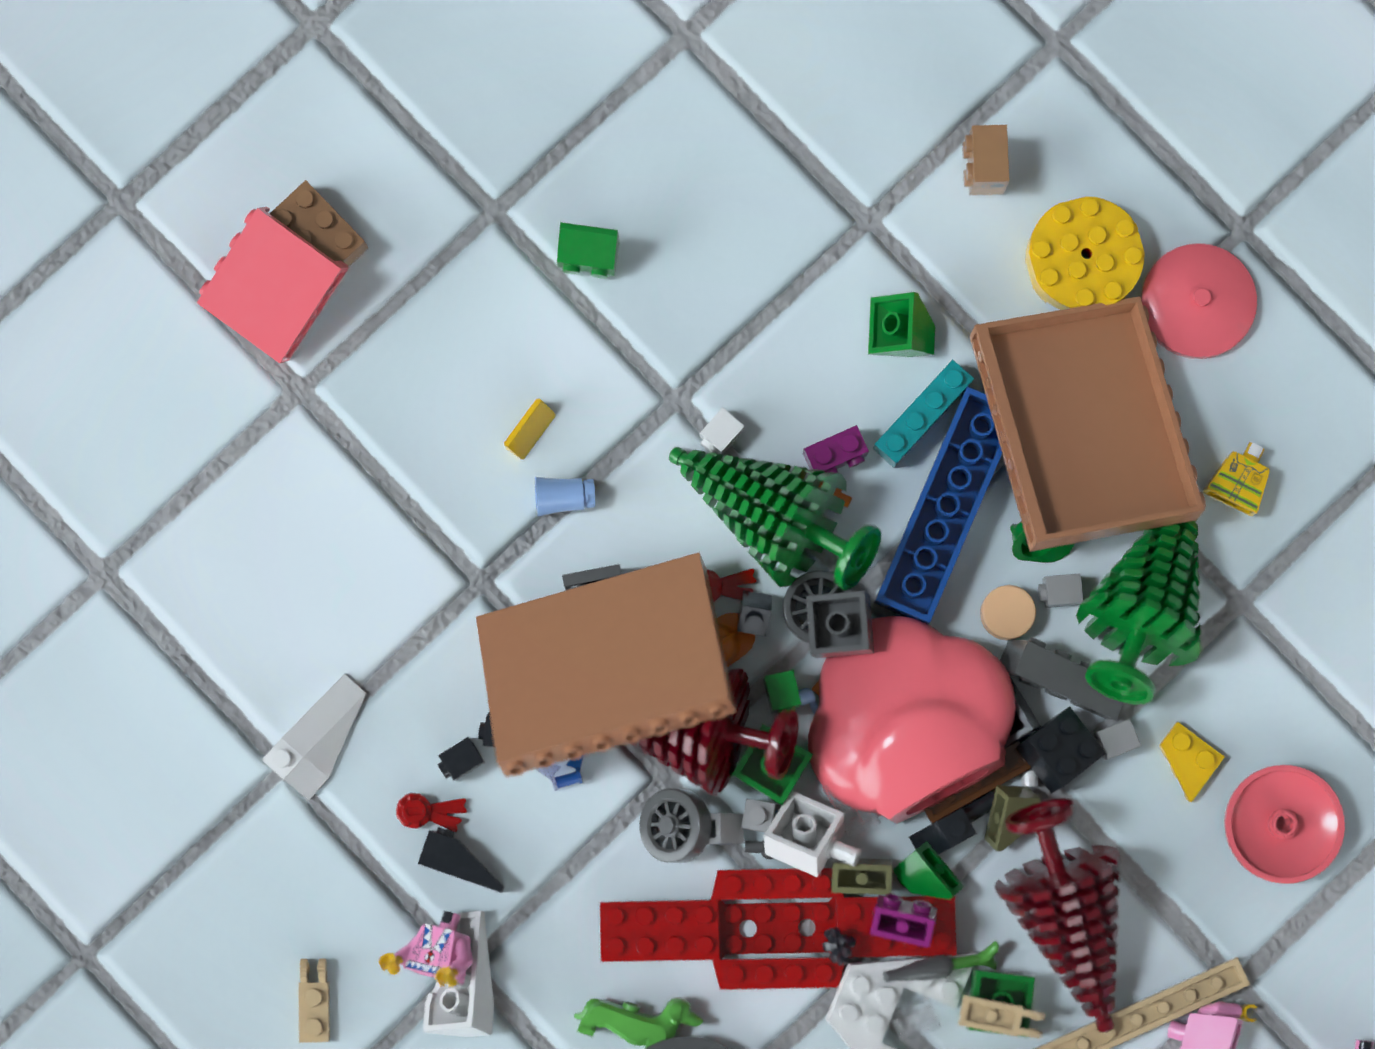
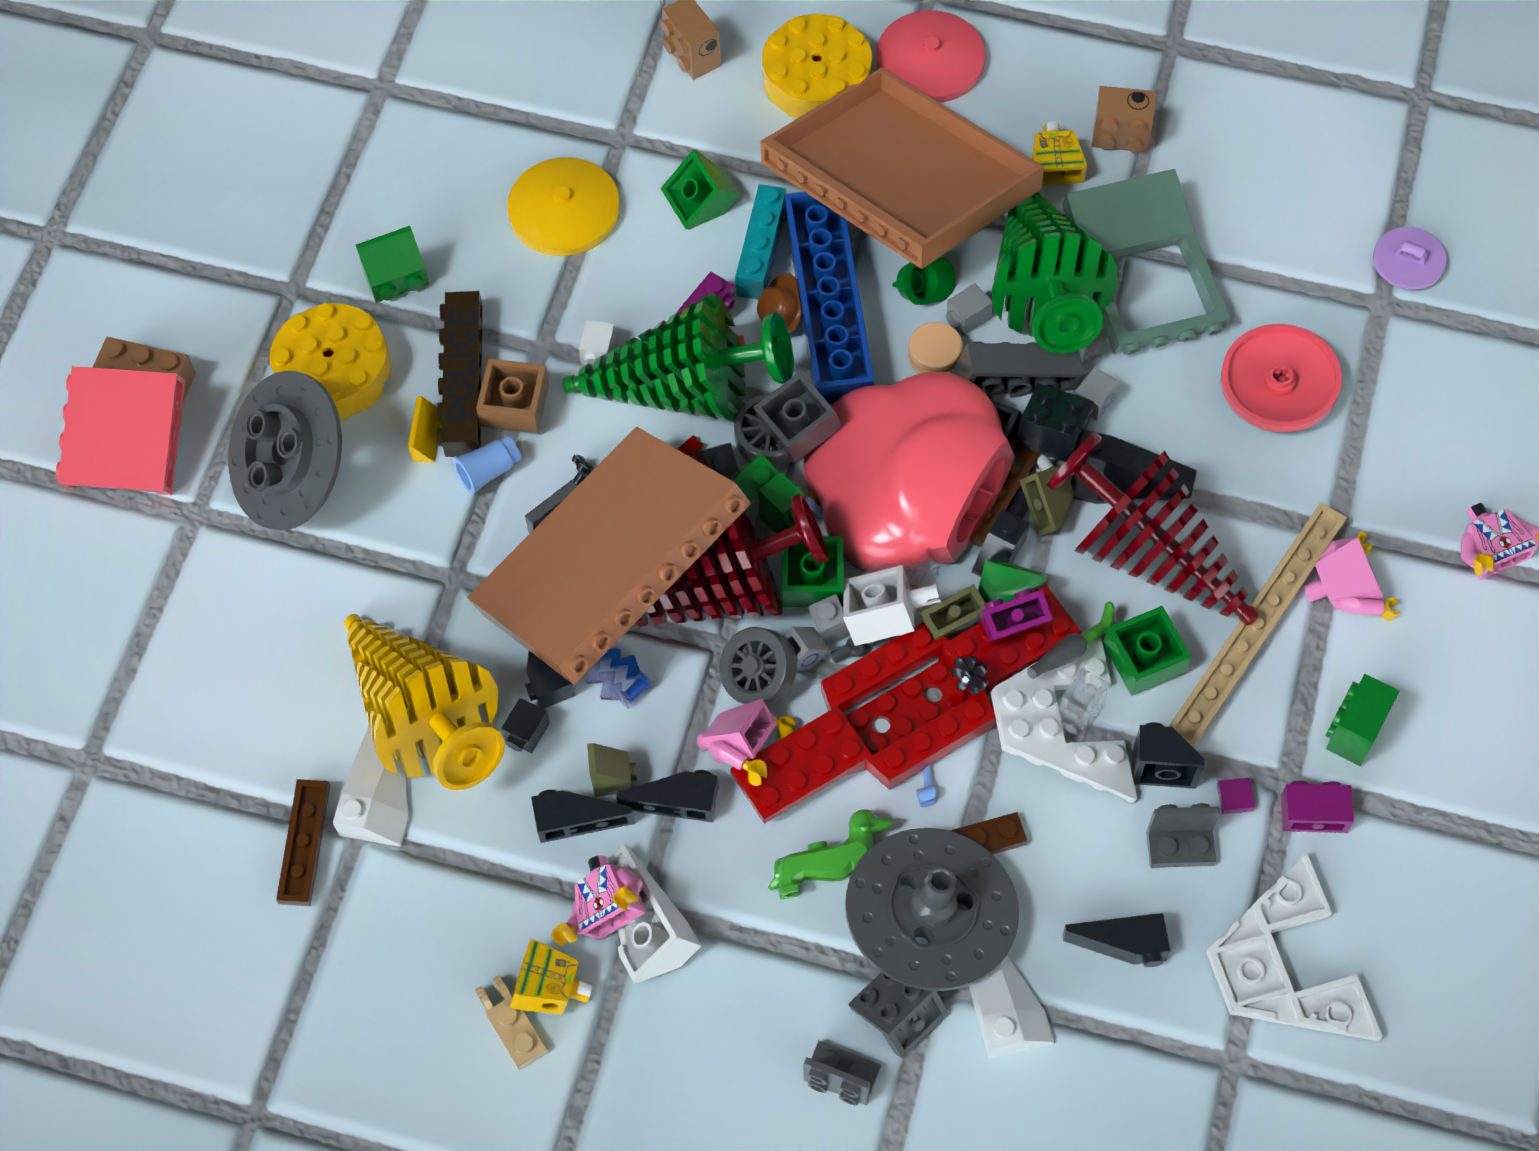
camera: 30 degrees left, 20 degrees down
(233, 753) = (303, 843): none -> reddish brown plate
(358, 990) = (547, 981): none -> yellow torso
(383, 696) = (425, 706): none -> yellow plant
(395, 395) = (285, 450): none -> dark grey piece
(415, 811) = (509, 795): red piece -> none
(481, 285) = (340, 350): none -> yellow piece
(506, 844) = (610, 770): none -> olive slope
(550, 896) = (680, 796): none -> black slope
(590, 391) = (461, 372): none -> dark brown brick
(619, 444) = (513, 395): none -> medium nougat brick
(624, 878) = (740, 735): none -> bright pink torso
(643, 550) = (583, 467): none -> black plant
(747, 1012) = (927, 795): none -> light blue hand
(767, 654) = (754, 476): none -> green brick
(774, 266) = (563, 206): none -> yellow dish
(900, 488) = (784, 298): none -> dark orange piece
(997, 1017) = (1154, 650): tan hinge -> none
(1098, 825) = (1124, 465): none -> black wedge
(1189, 759) = (1166, 379): yellow wing -> none
(1261, 590) = (1138, 218): none -> sand green window
(1321, 485) = (1123, 119): none -> medium nougat brick

